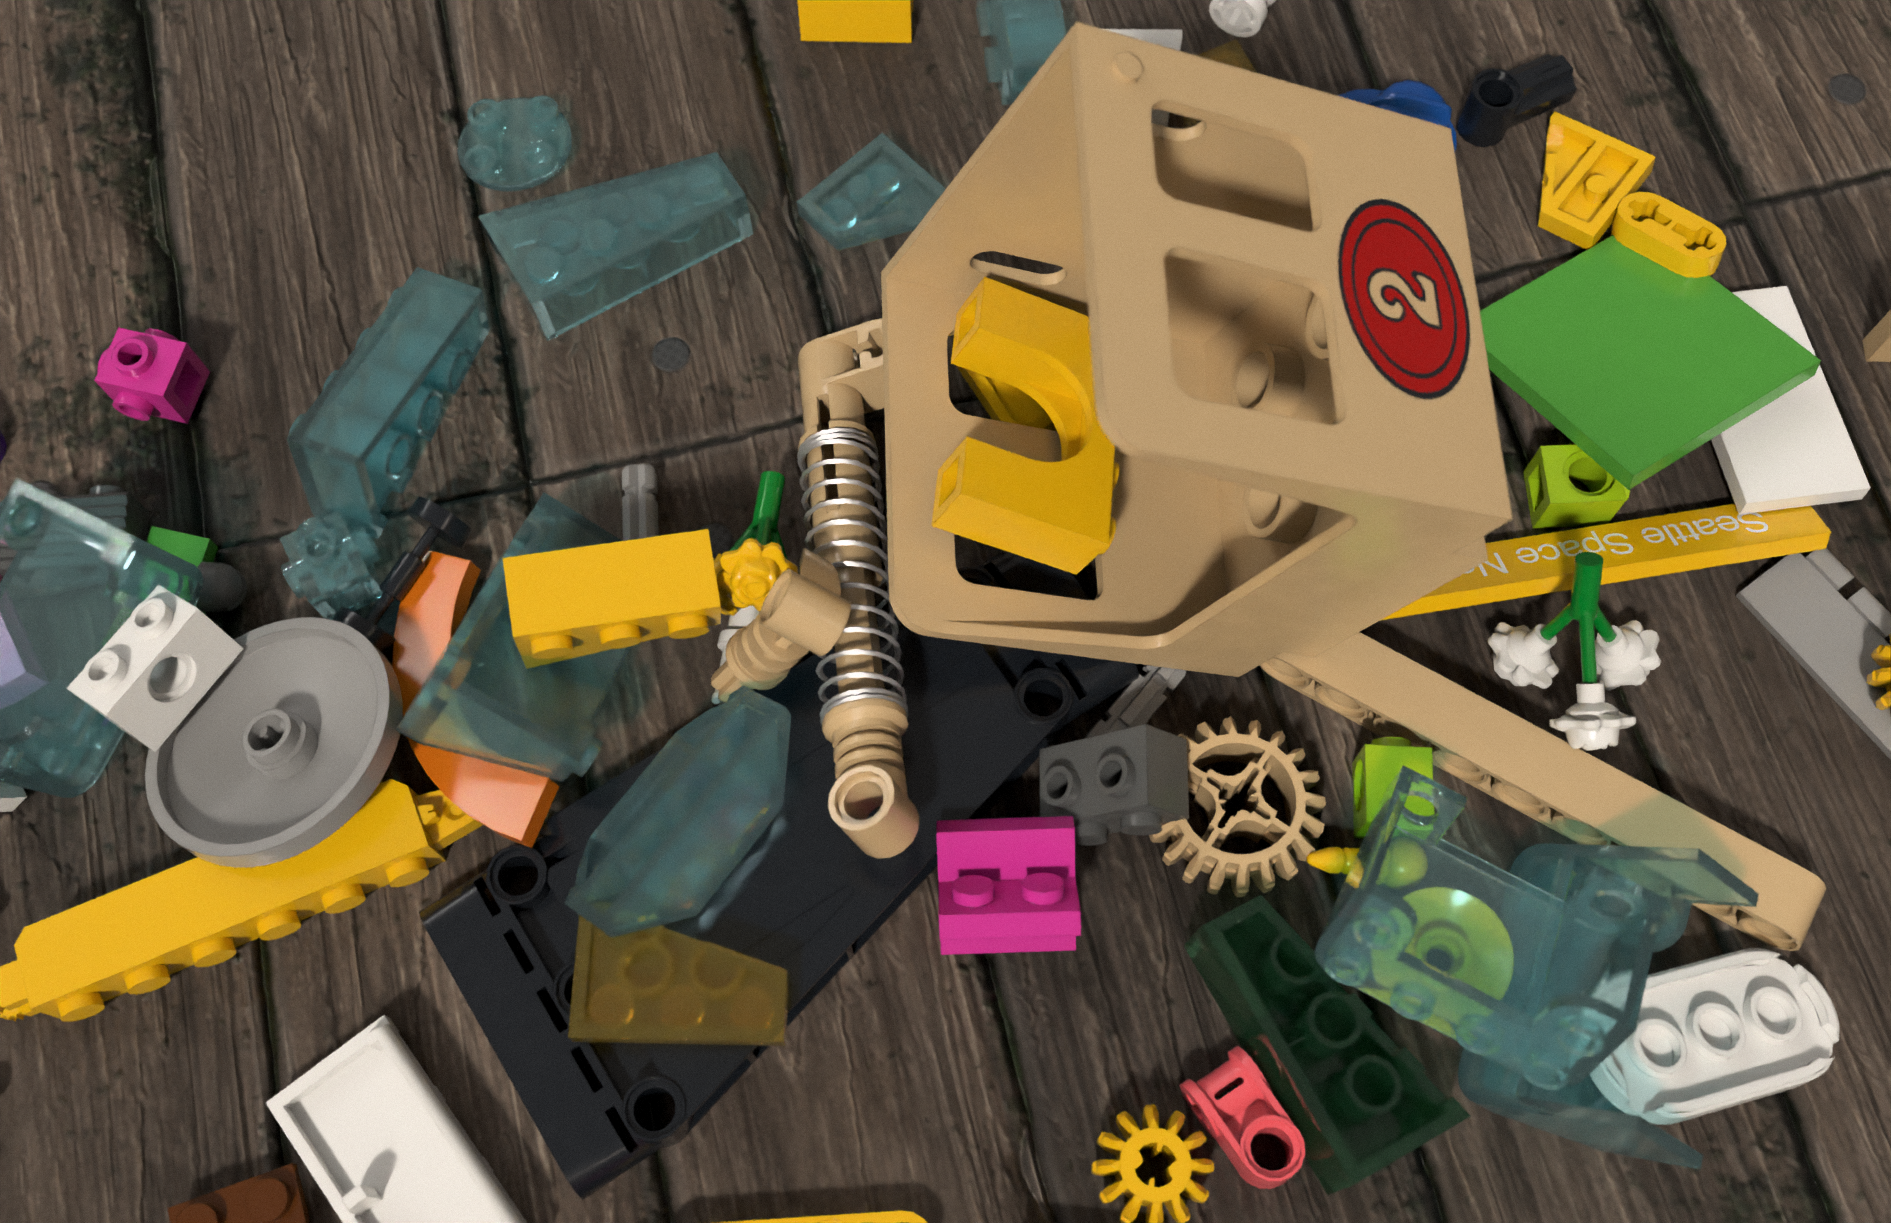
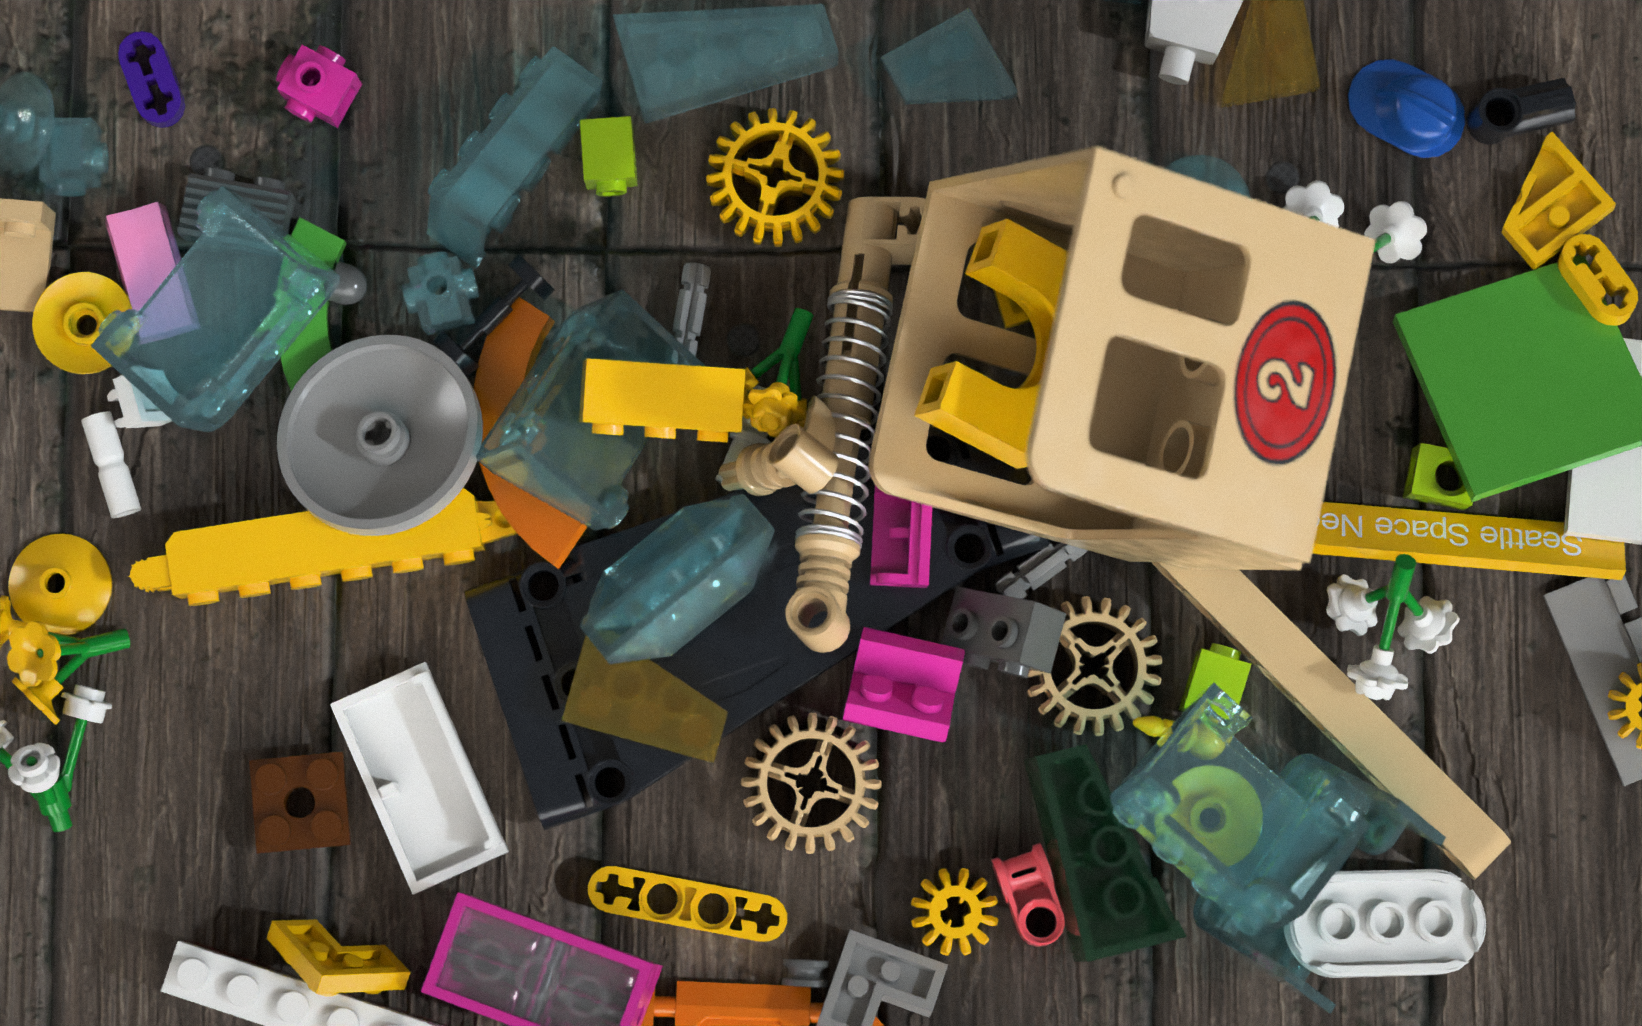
camera: 10 degrees right, 15 degrees up
(156, 667) = (299, 356): white brick -> none
(507, 371) = (608, 155): none -> lime brick
(679, 334) = (753, 171): none -> yellow gear
(952, 1048) = (825, 741): none -> tan gear
(955, 701) = (900, 542): none -> dark pink hinge

